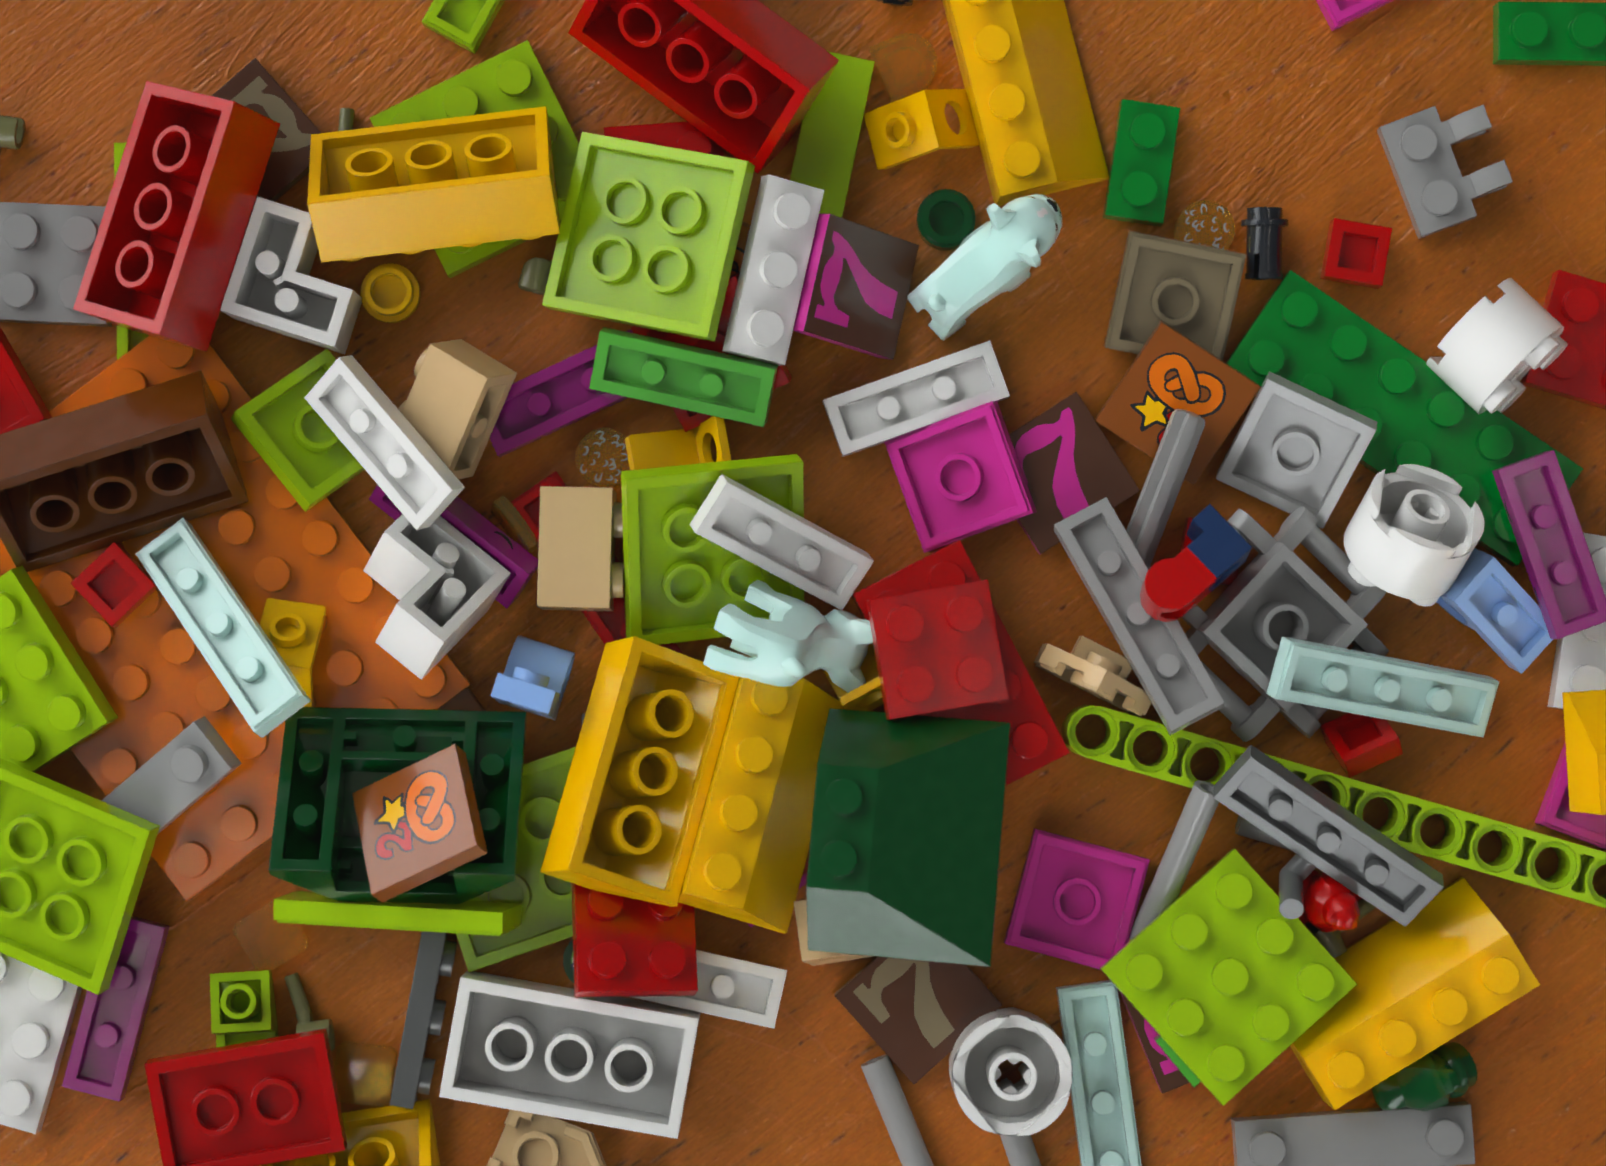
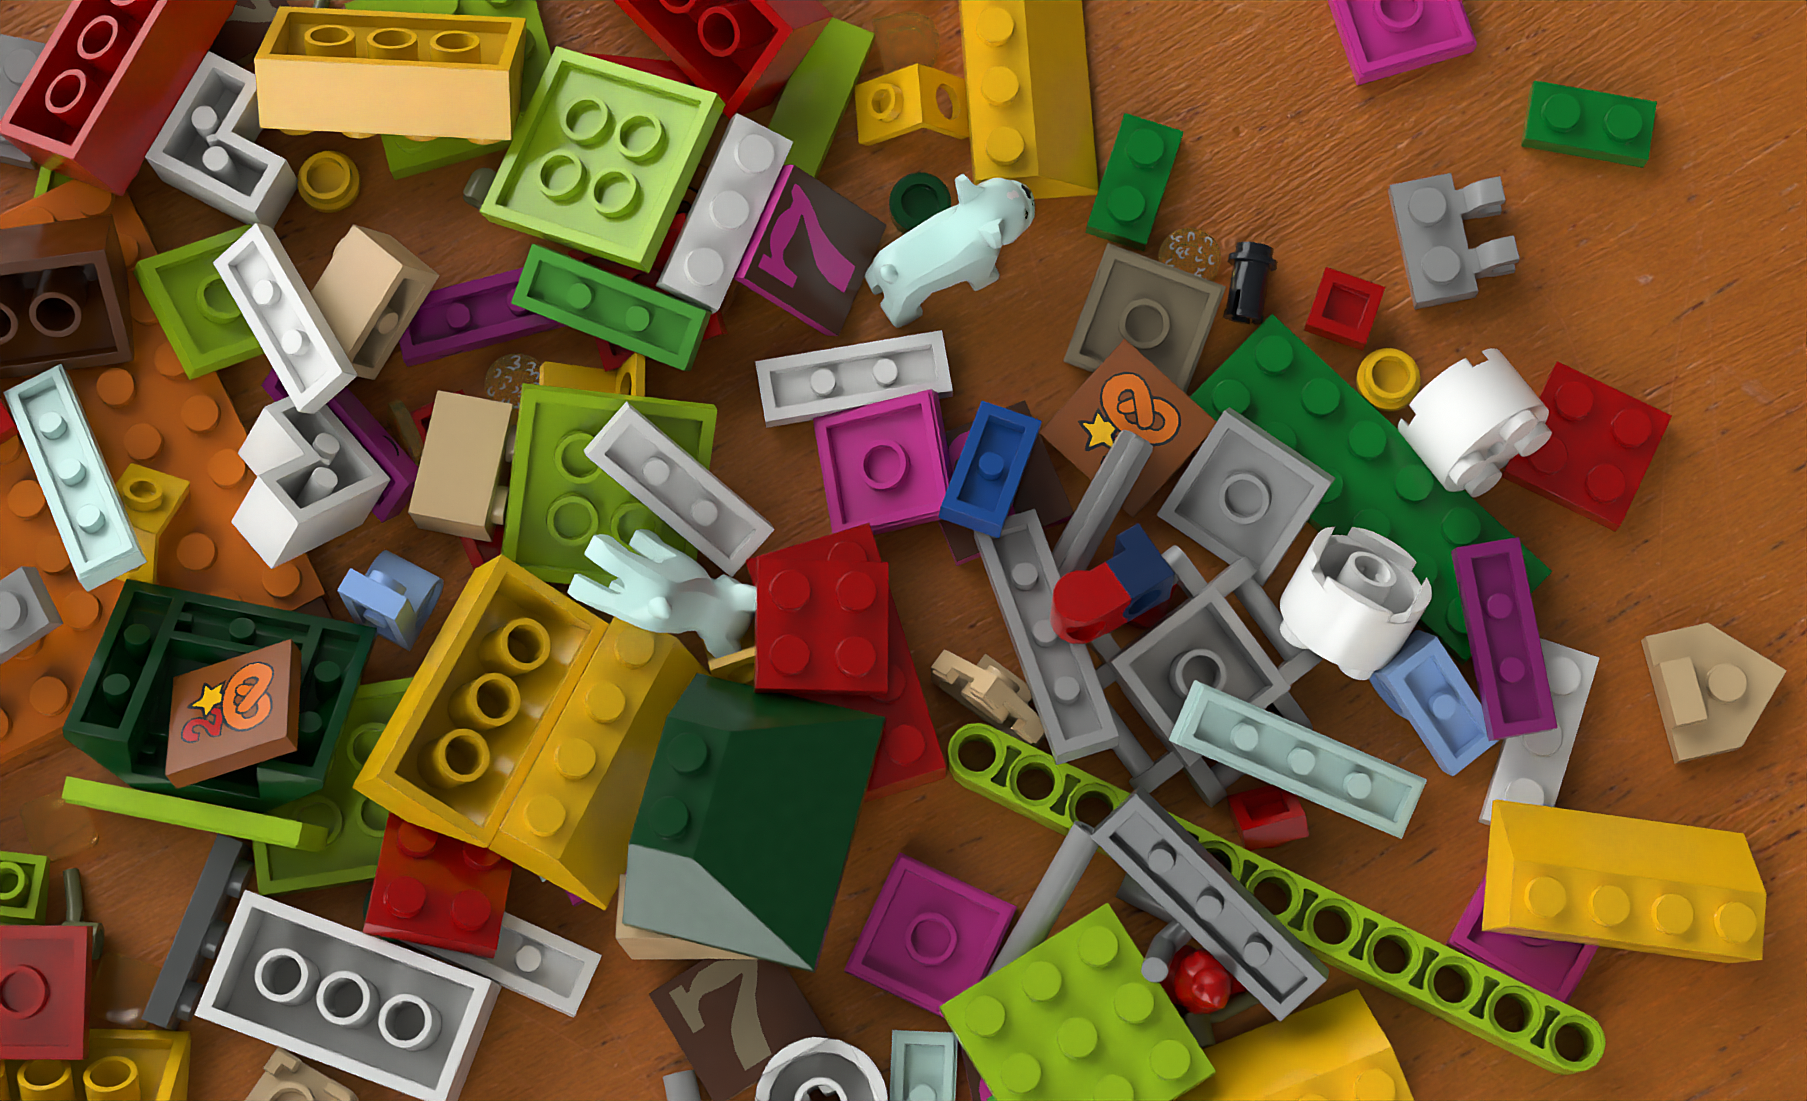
camera: 20 degrees right, 10 degrees down
(1060, 468) = (990, 469): none -> blue plate
(1406, 312) = (1388, 379): none -> yellow plate

